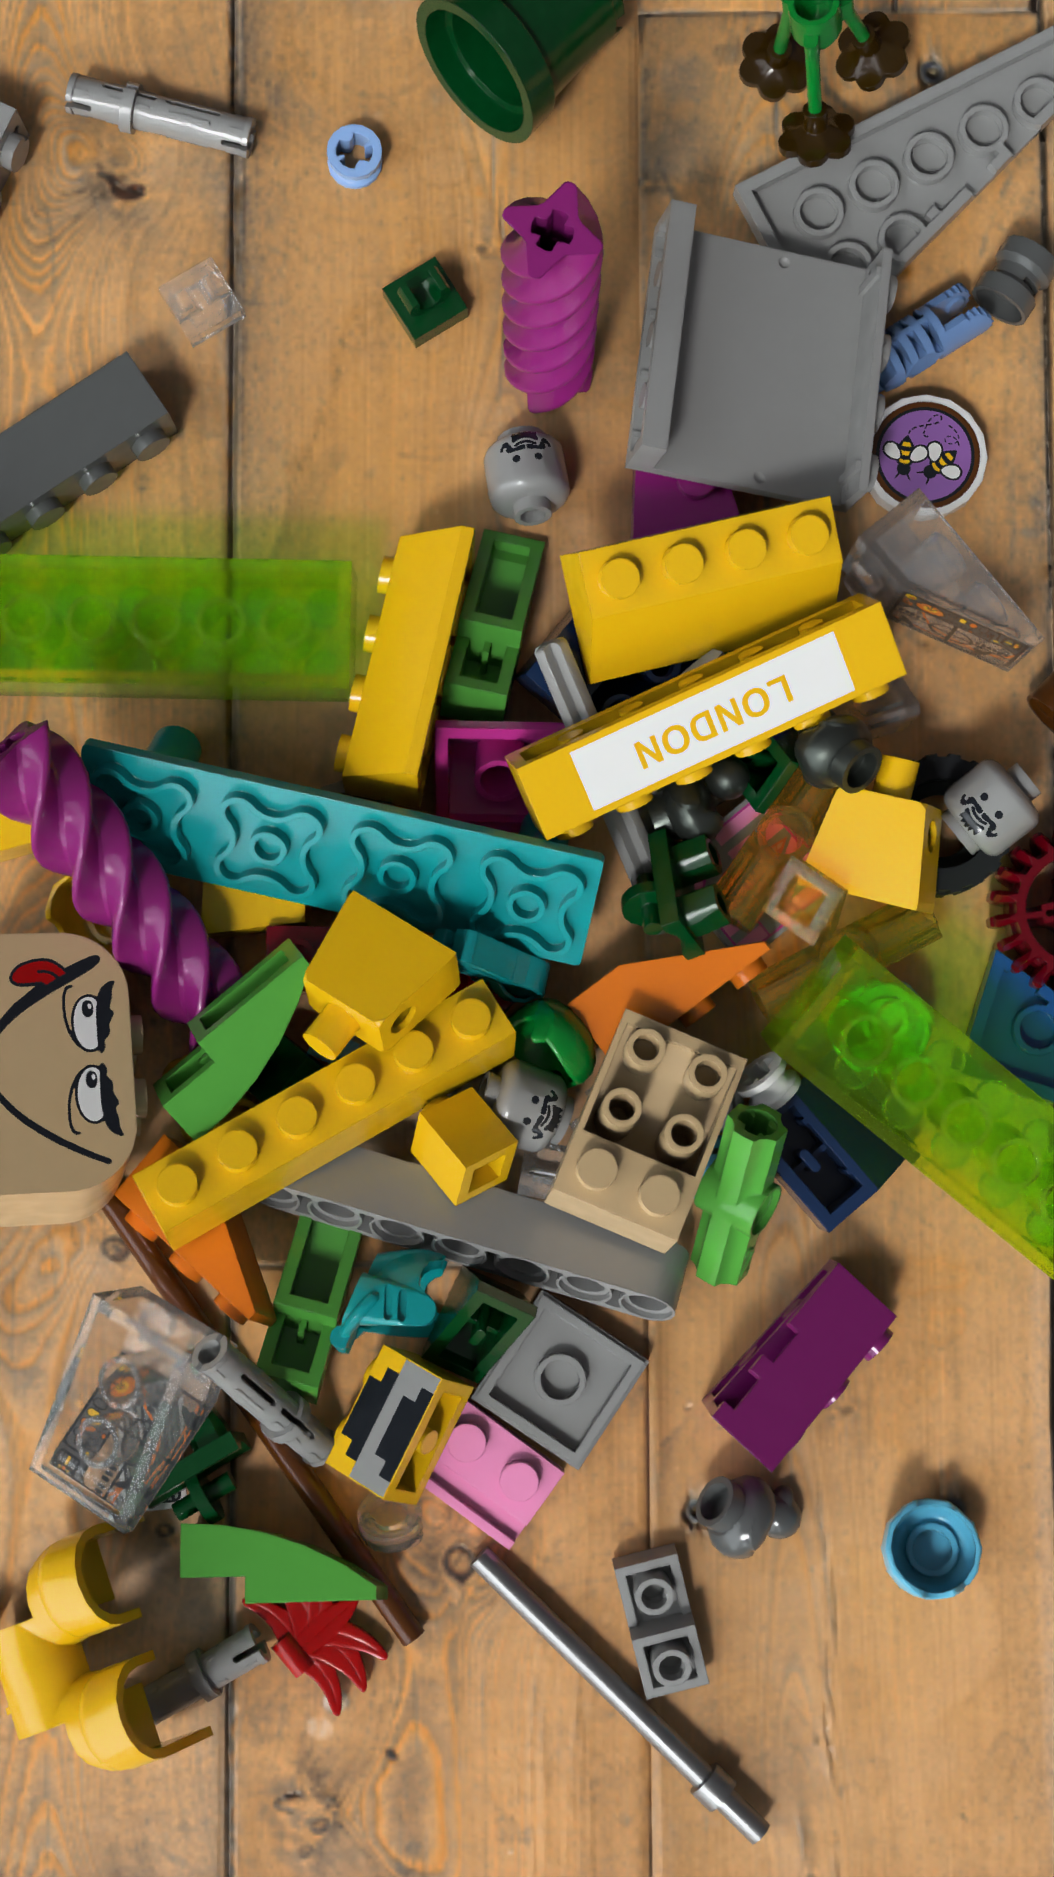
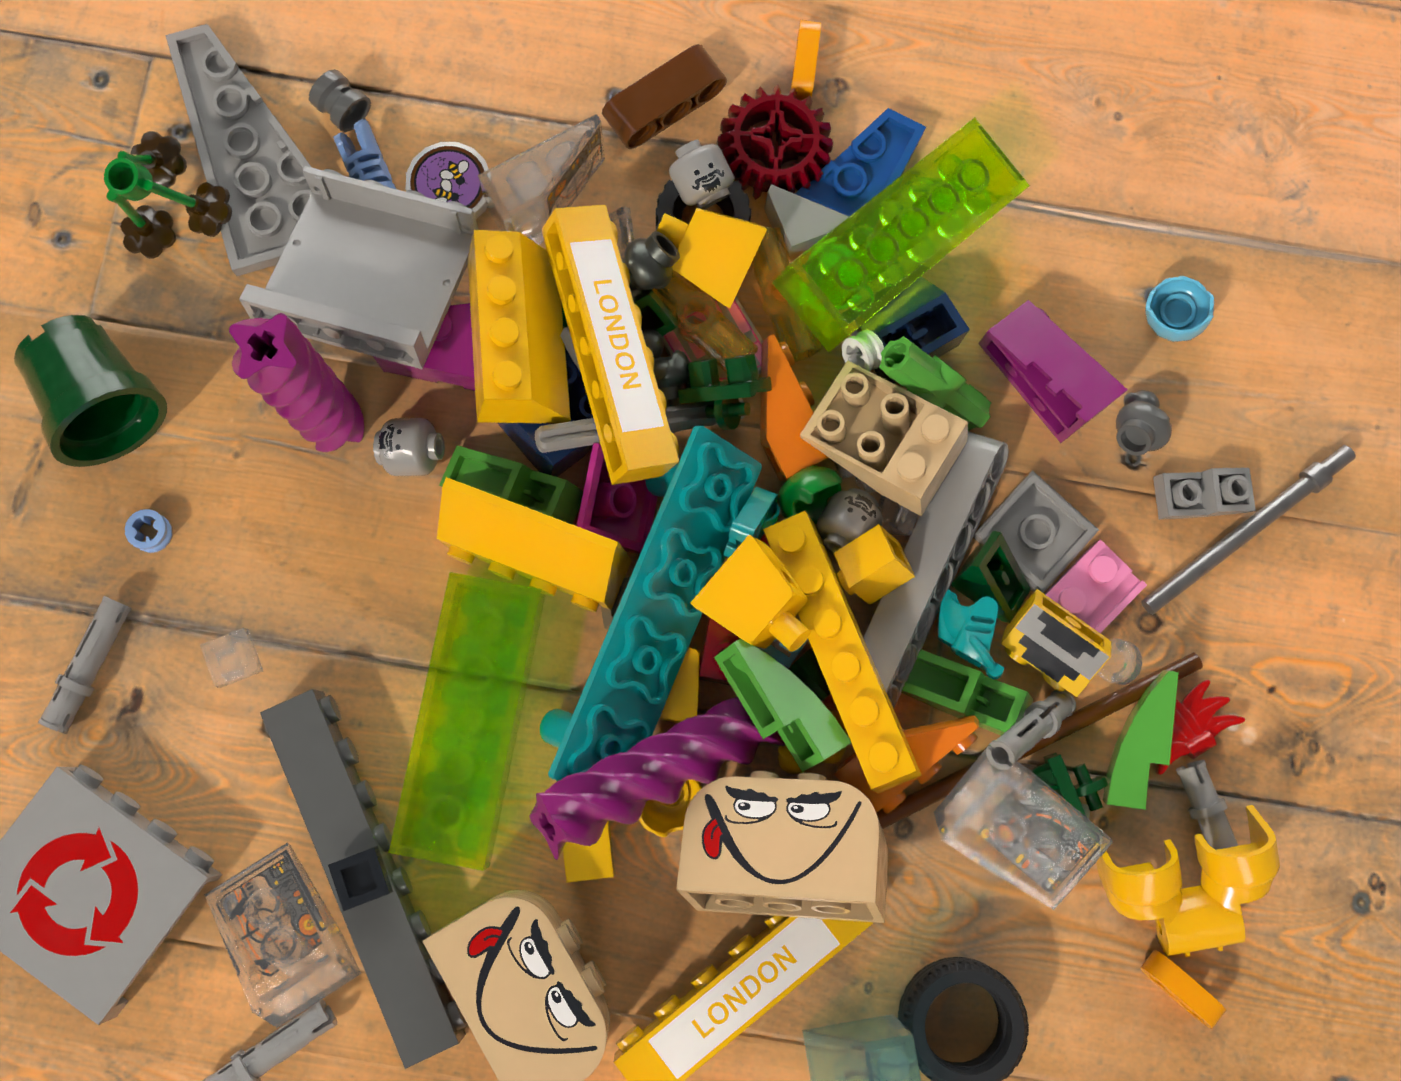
camera: 90 degrees left, 5 degrees down
(425, 302) = (267, 498): dark green tile -> none
(806, 901) = (745, 303): clear yellow slope -> none
(956, 969) = (799, 219): none -> light grey slope

